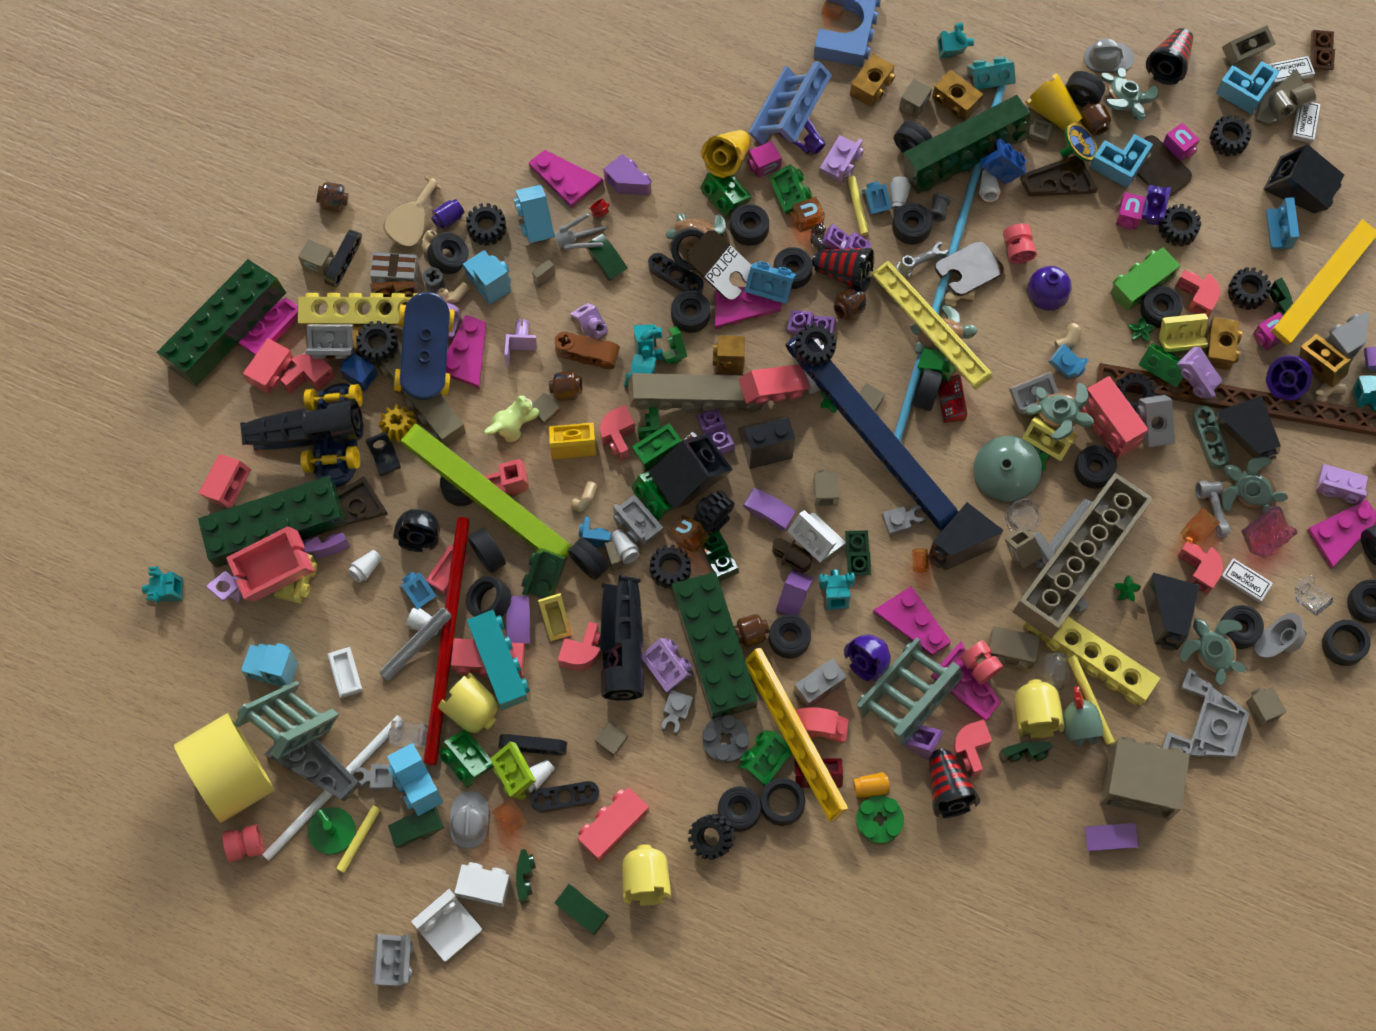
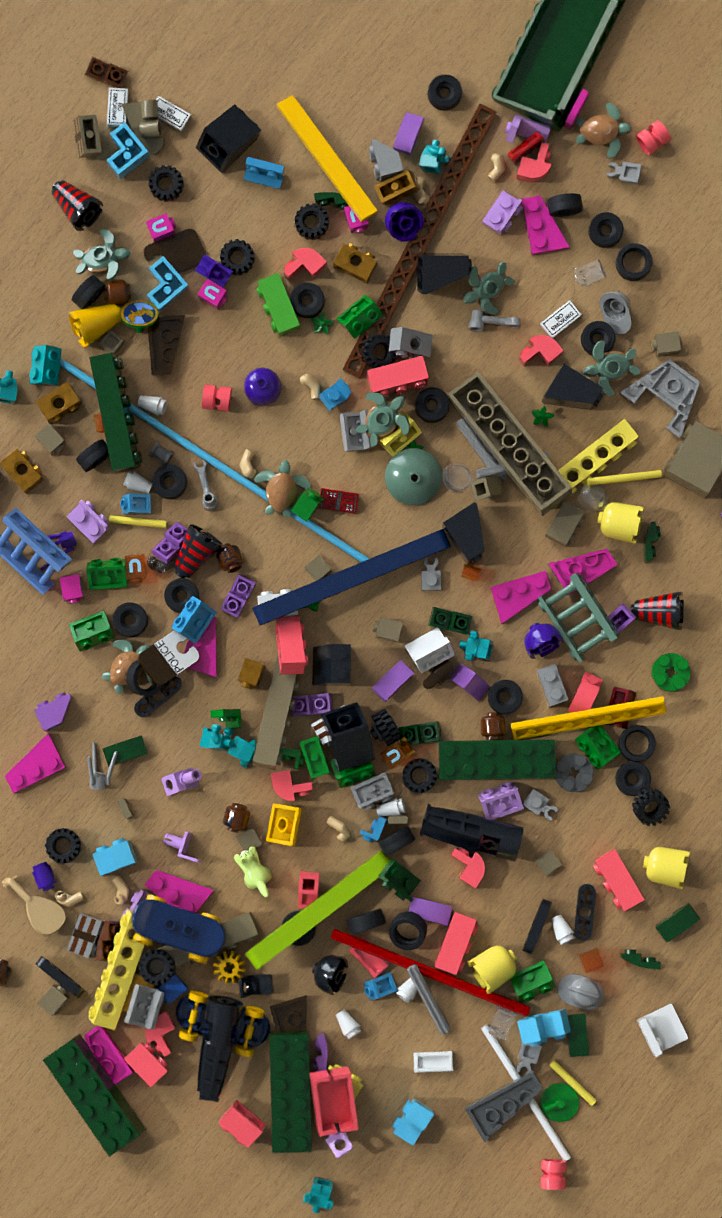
camera: 70 degrees left, 15 degrees up
(224, 768) = (496, 1175): light yellow wheel -> none
(295, 735) = (486, 1112): sand green fence -> none
(392, 960) = (677, 1078): light grey bracket -> none
(432, 280) = (111, 902): dark grey bush -> none
(453, 243) = (84, 896): black tyre -> none
(482, 884) = (637, 994): white brick -> none
(497, 659) = (465, 936): teal brick -> none
(513, 771) = (557, 947): lime bracket -> none
(533, 206) = (67, 801): medium azure brick -> none
(555, 617) = (438, 880): light yellow slope -> none
(587, 350) = (209, 789): dark orange piece -> none
(599, 208) = (76, 743): red plate -> none
(692, 299) = (186, 693): black tyre -> none
(725, 152) = (60, 619): yellow cone -> none
(812, 357) = (273, 614): black tyre -> none
(871, 785) = (643, 670): light orange piece -> none
(927, 390) = (329, 519): black tyre -> none
(932, 325) = (273, 498): light yellow tile -> none
(968, 741) = (630, 585): coral brick -> none
(974, 265) = (223, 442): piece -> none
(987, 668) = (580, 551): coral wheel -> none
(1005, 163) = (142, 383): blue bracket -> none
(1082, 720) = (641, 491): sand green piece -> none
(1108, 56) = (56, 257): light grey piece -> none
(1183, 332) = (338, 291): light yellow bracket -> none
(1199, 373) = (380, 293): lavender bracket -> none
(1199, 527) = (508, 341): clear orange brick -> none
(1212, 427) = (446, 308): sand green beam -> none
(1268, 532) = (529, 288): clear pink bracket -> none

